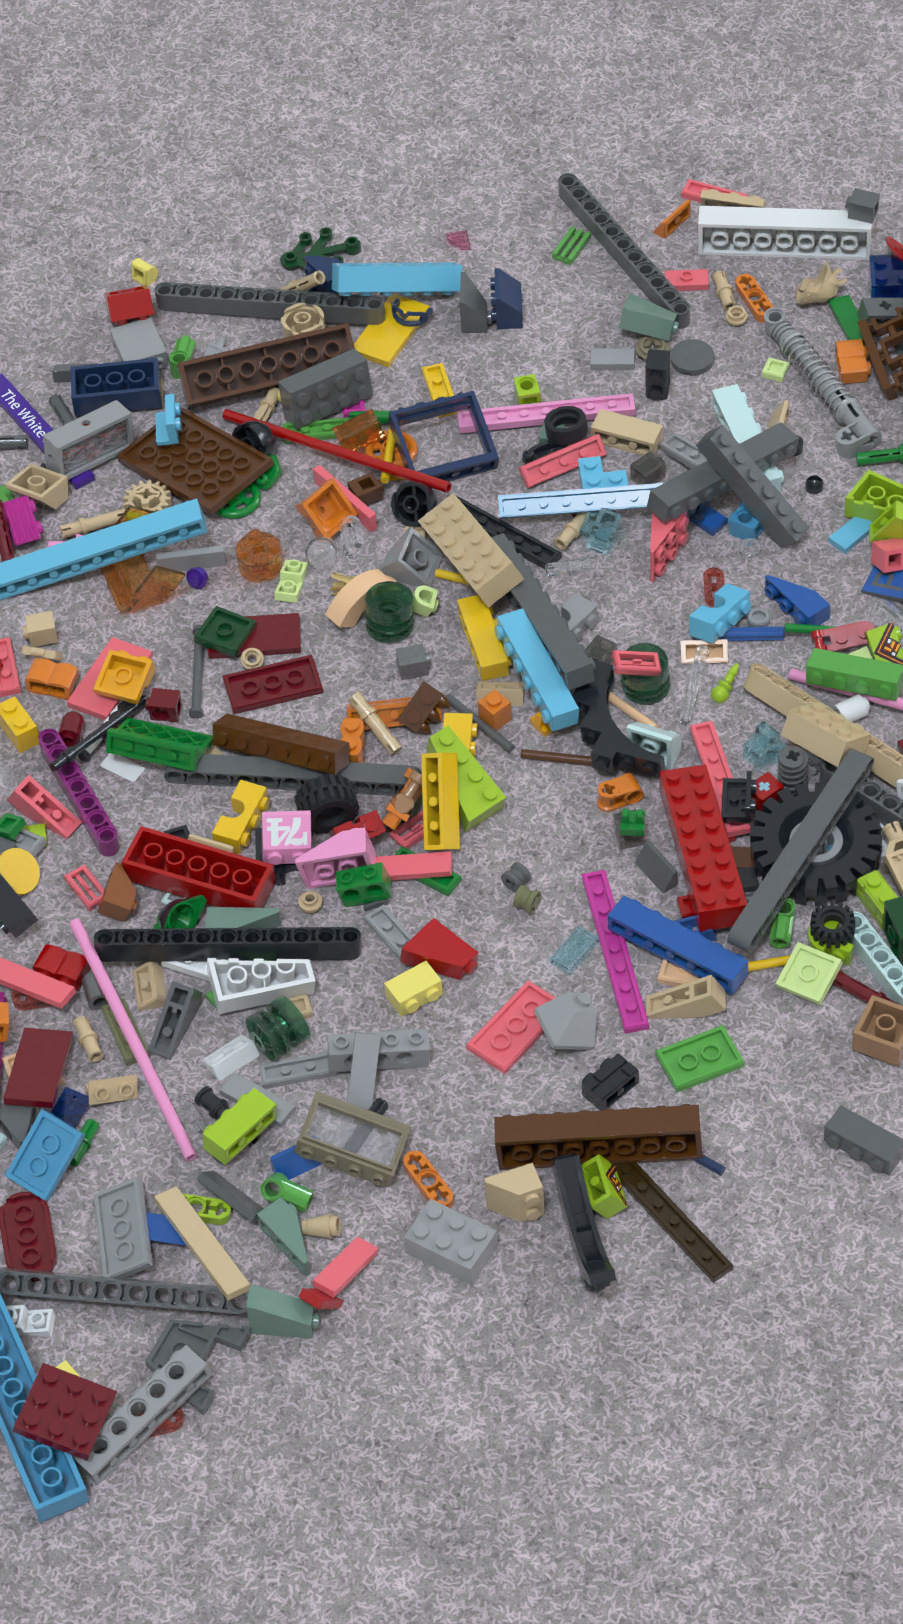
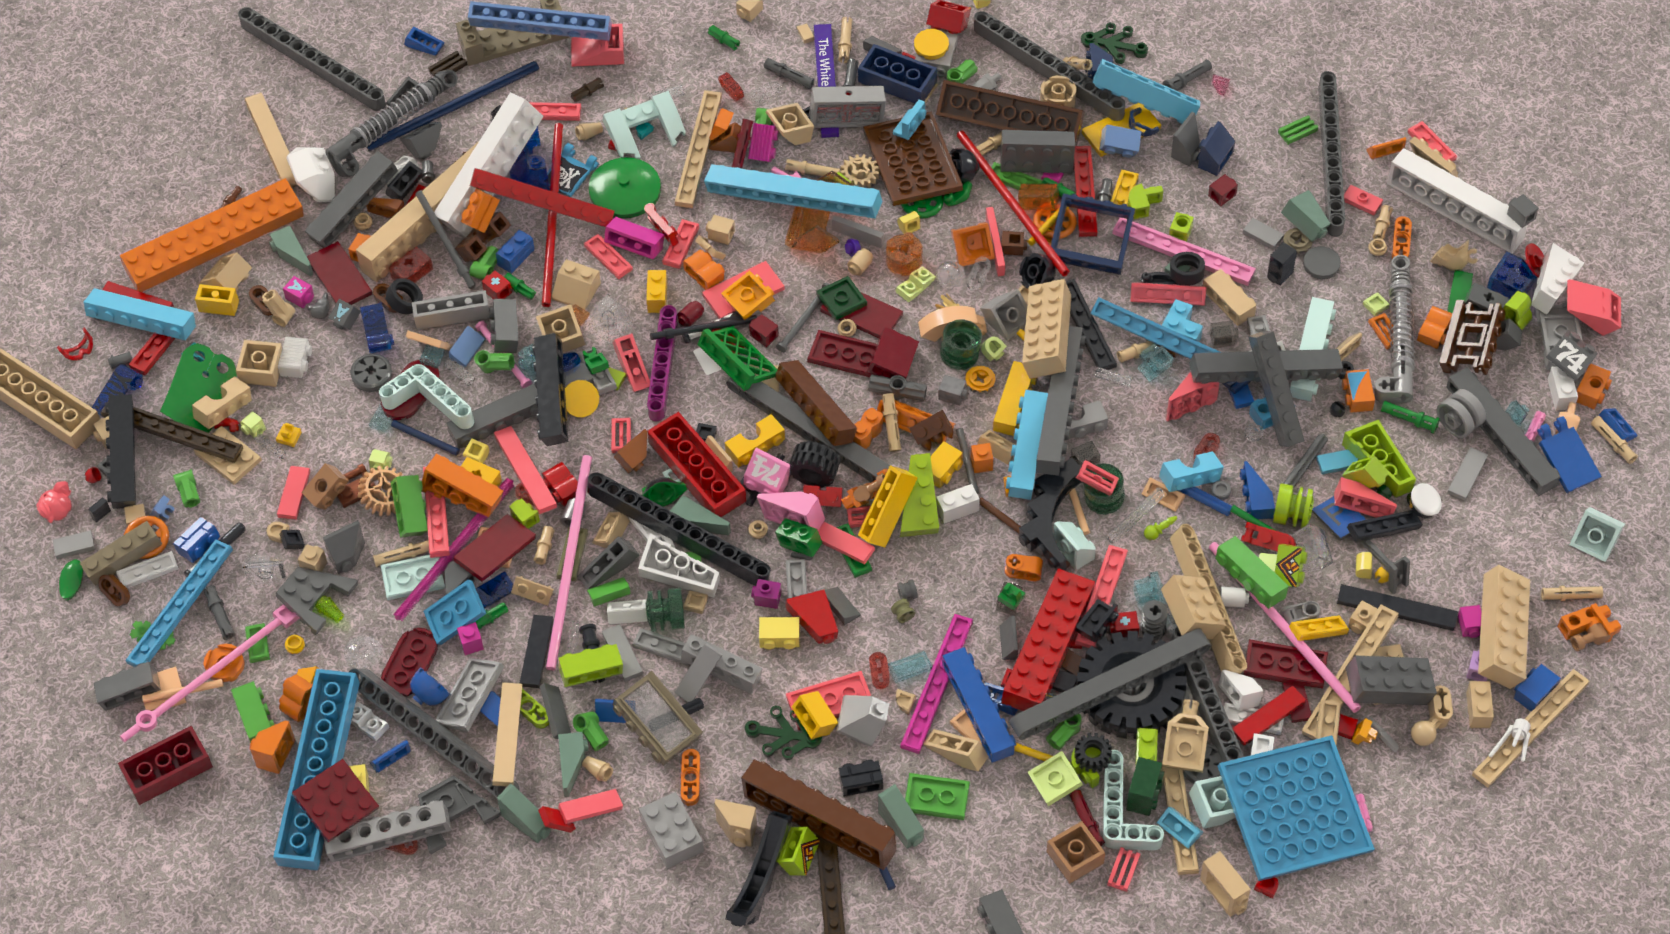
camera: 30 degrees right, 5 degrees up
(33, 386) = (844, 45): none -> tan pin
(42, 1017) = (524, 513): none -> lime brick
(73, 1248) = (427, 689): none -> blue cylinder
(80, 1174) = (470, 638): none -> dark pink brick
(81, 1340) = (390, 756): none -> blue slope
(131, 338) = (931, 44): none -> yellow tile
(162, 1148) = (536, 651): none -> black tile
(195, 1047) = (609, 591): none -> bright green slope
(216, 587) = (860, 262): none -> tan brick
(239, 524) = (909, 222): none -> light yellow brick
(325, 659) = (893, 354): none -> dark red brick
(351, 684) = (906, 388): none -> dark grey piece
(370, 958) = (767, 593): none -> magenta brick
(393, 397) = (1084, 188): none -> red plate
(402, 338) = (1120, 141): none -> medium blue brick
(421, 394) = (1105, 192): none -> dark grey pin
(429, 233) = (1181, 79): none -> dark grey pin
(429, 630) = (982, 372): none -> light orange gear
(466, 931) = (841, 605): none -> dark grey slope
(469, 380) = (1142, 198): none -> lime brick
(496, 1083) = (786, 735): none -> dark green plant
(506, 763) = (957, 503): none -> white brick
(518, 1044) = (814, 714): none -> yellow brick
(541, 336) = (1223, 190): none -> dark red brick
(549, 968) = (875, 671): none -> clear red beam
(594, 984) = (905, 700): none -> tan tile
(675, 1088) = (900, 817): none -> sand green slope
(800, 392) = (1372, 322): none -> orange tile
(821, 551) = (1306, 460): none -> dark grey axle
(823, 456) = (1359, 391): none -> orange brick
(846, 592) = (1293, 505): none -> lime wheel

